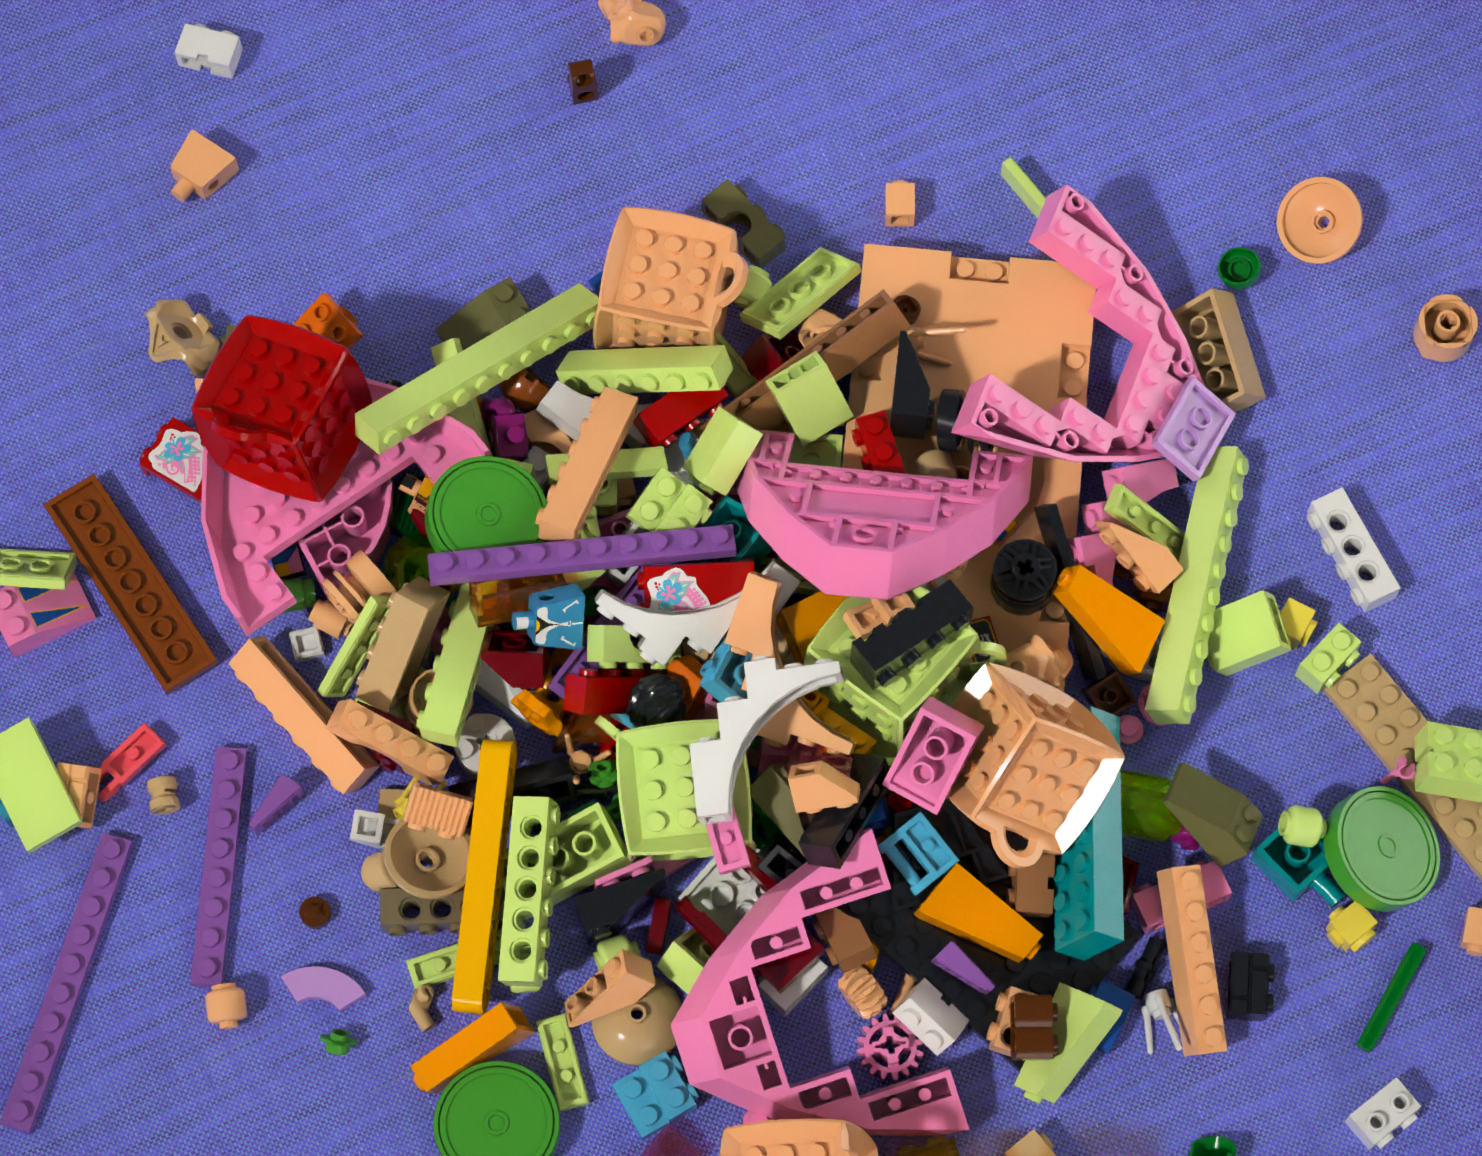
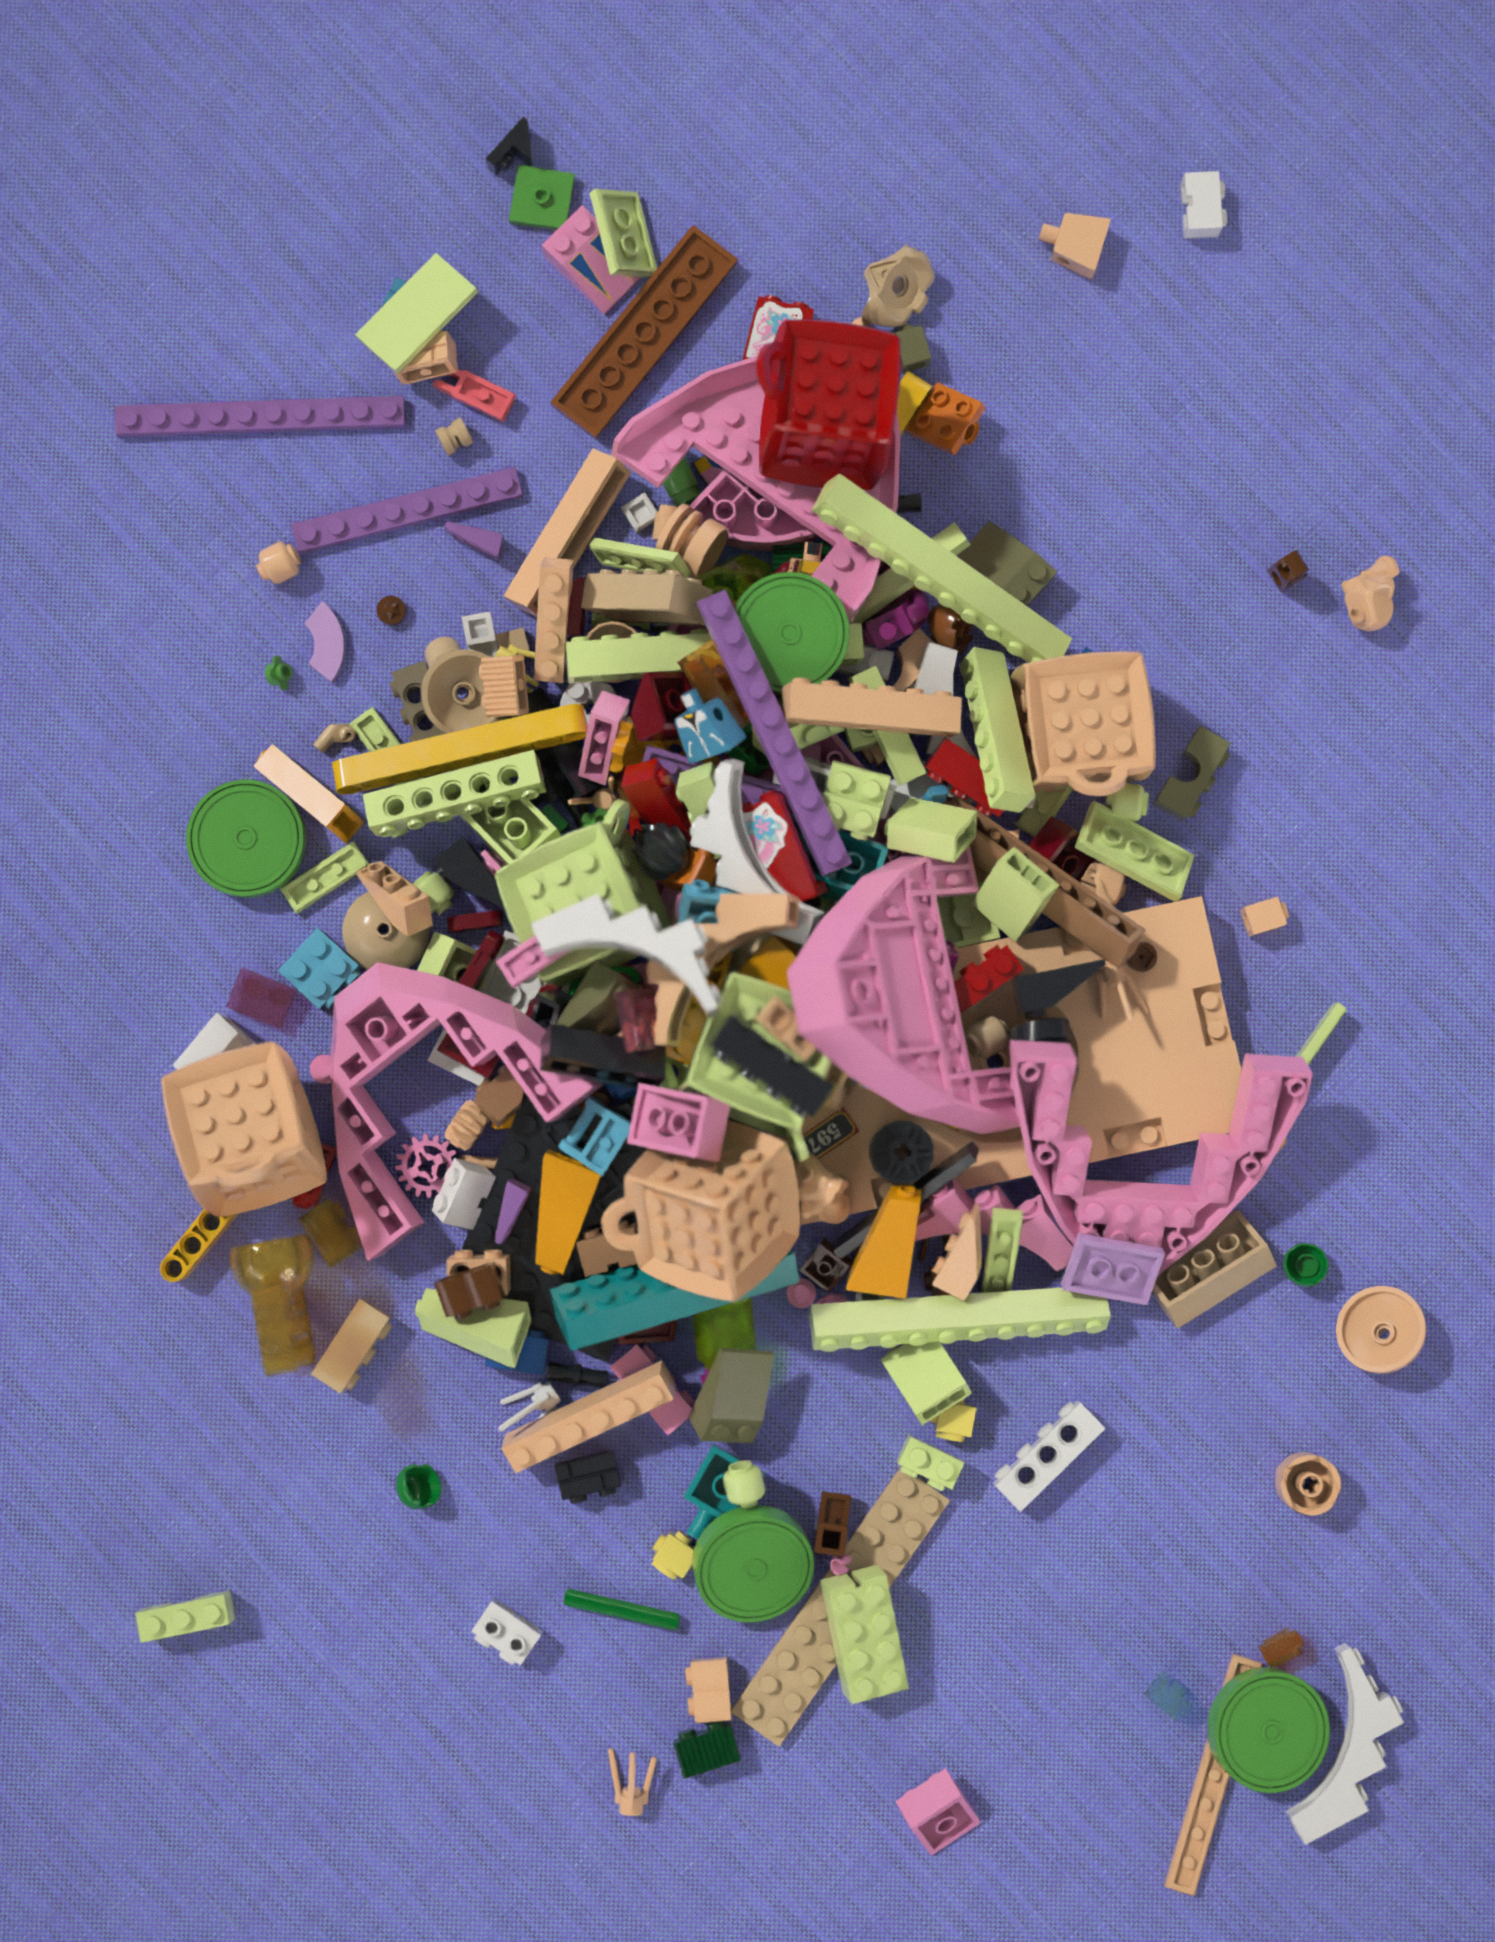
camera: 70 degrees right, 15 degrees up
(522, 725) = (601, 735): none -> bright pink brick
(821, 786) = (608, 1028): light nougat slope -> none
(1363, 767) = (832, 1524): none -> reddish brown brick

